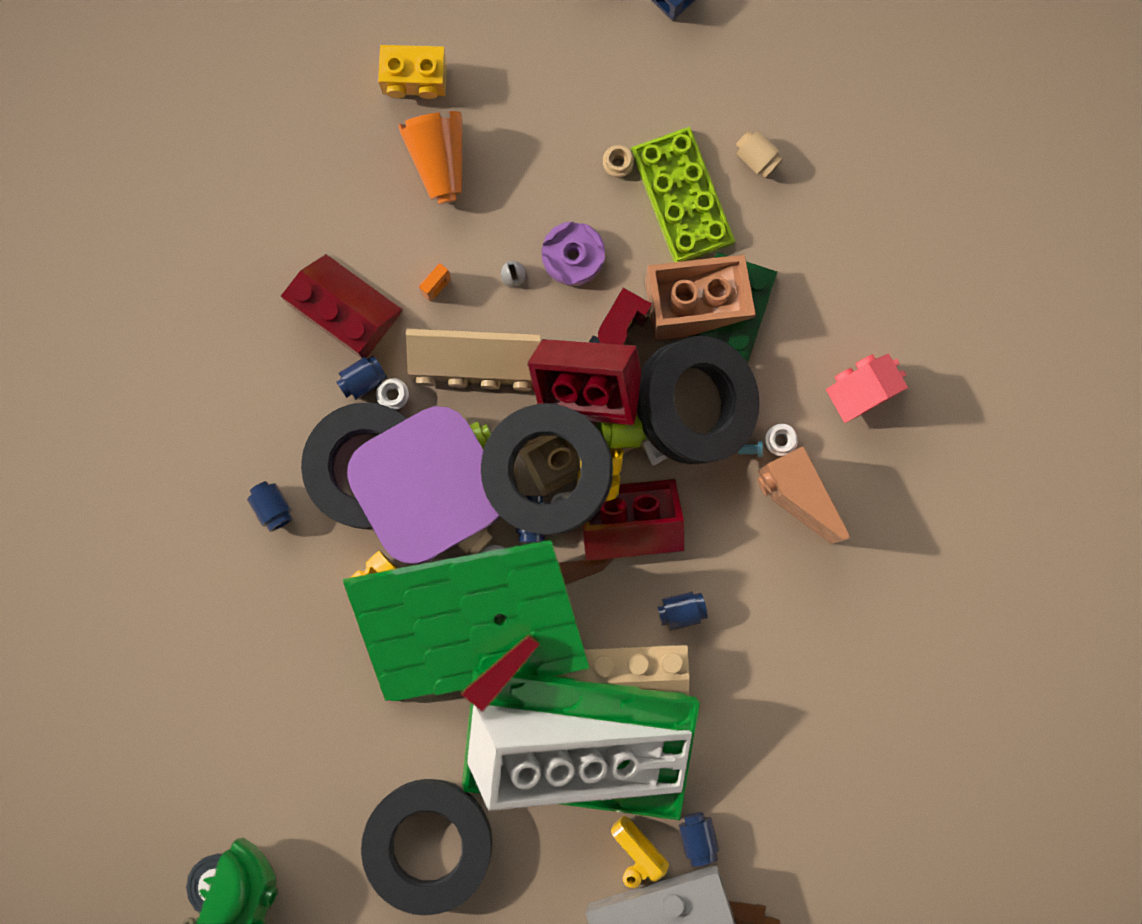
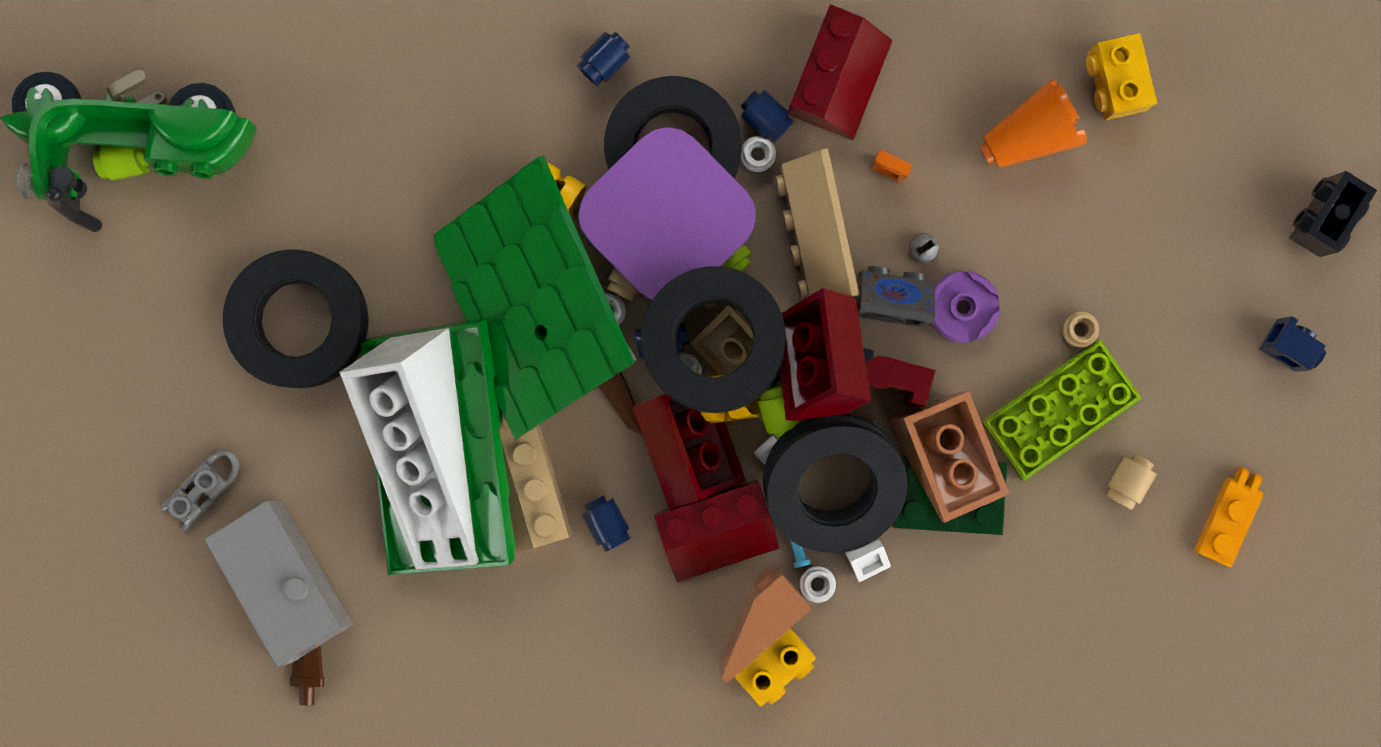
camera: 75 degrees right, 5 degrees up
(491, 682) = (473, 340): dark red piece -> none
(551, 305) = (895, 298): none -> dark grey slope
(646, 856) = (344, 546): yellow piece -> none
(699, 839) = (373, 600): dark blue brick -> none
(713, 514) = (717, 531): none -> dark red slope
(771, 390) = (868, 560): none -> white plate
(809, 80) = (1230, 518): none -> light orange hinge
(847, 492) = (777, 668): none -> yellow brick
(867, 386) = (897, 664): coral brick -> none

